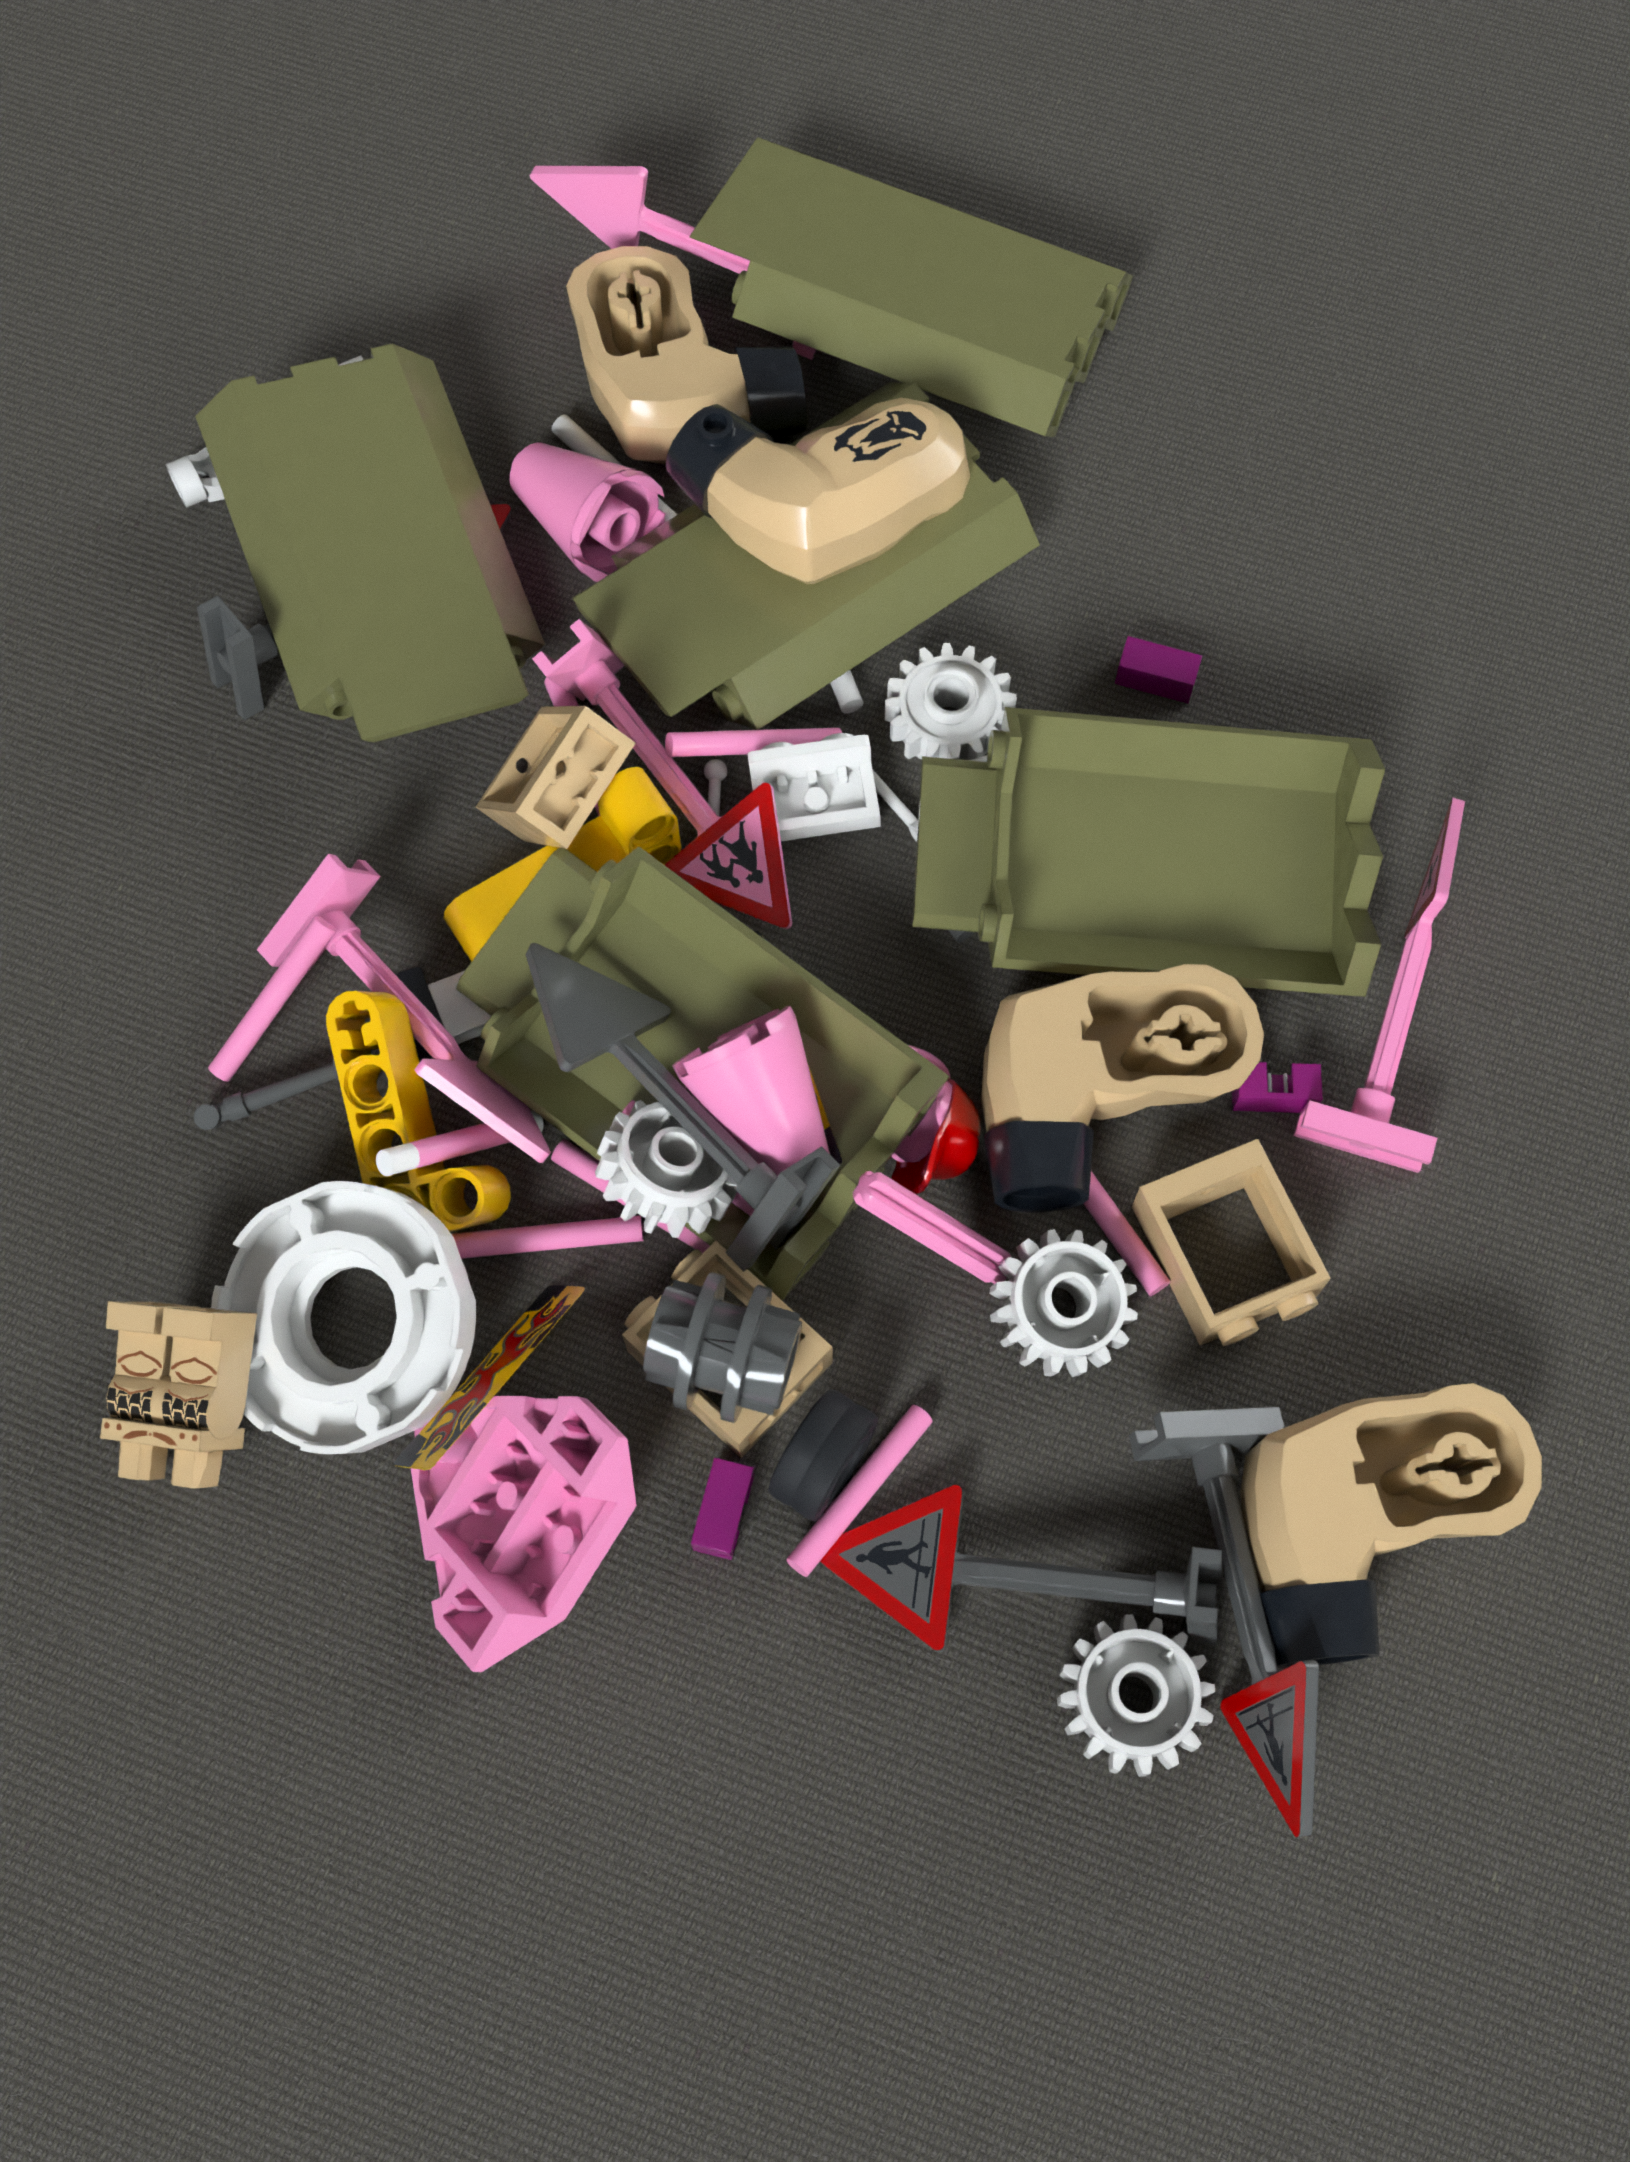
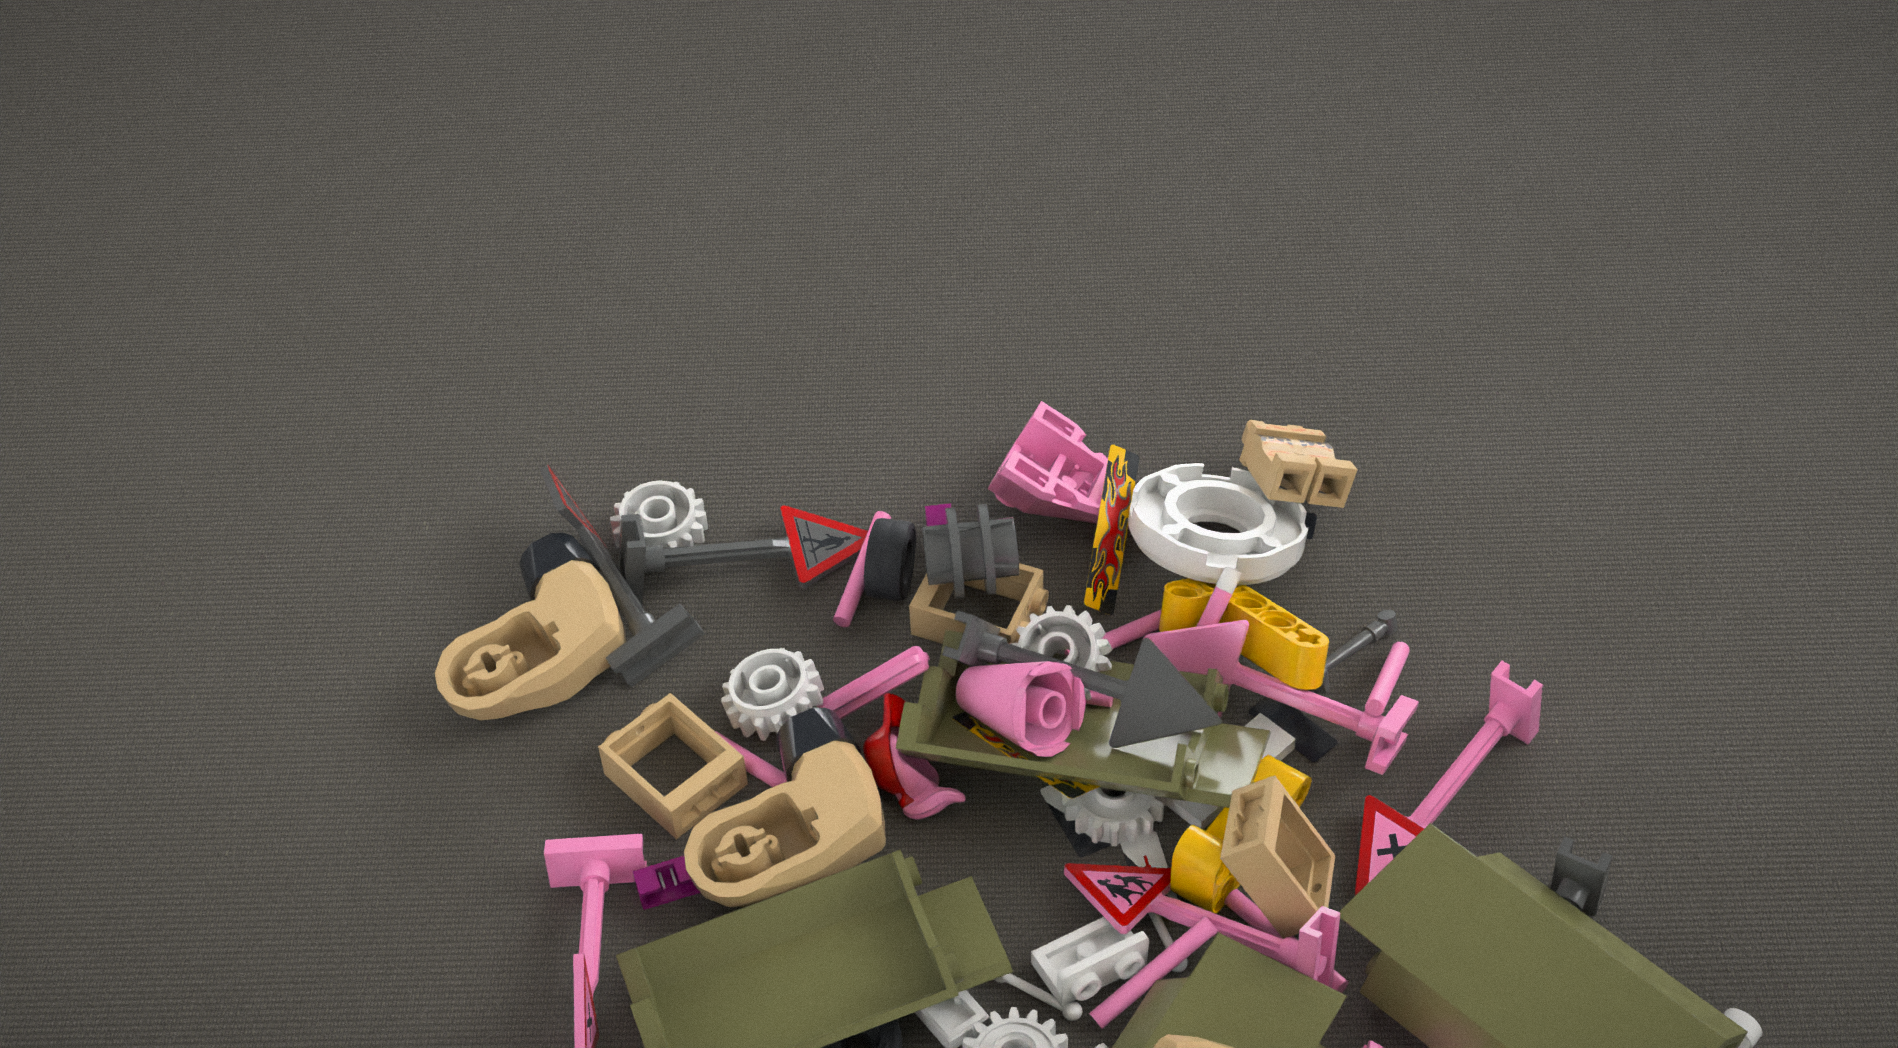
camera: 160 degrees right, 20 degrees down
(389, 802) = (1389, 832): none -> bright pink piece

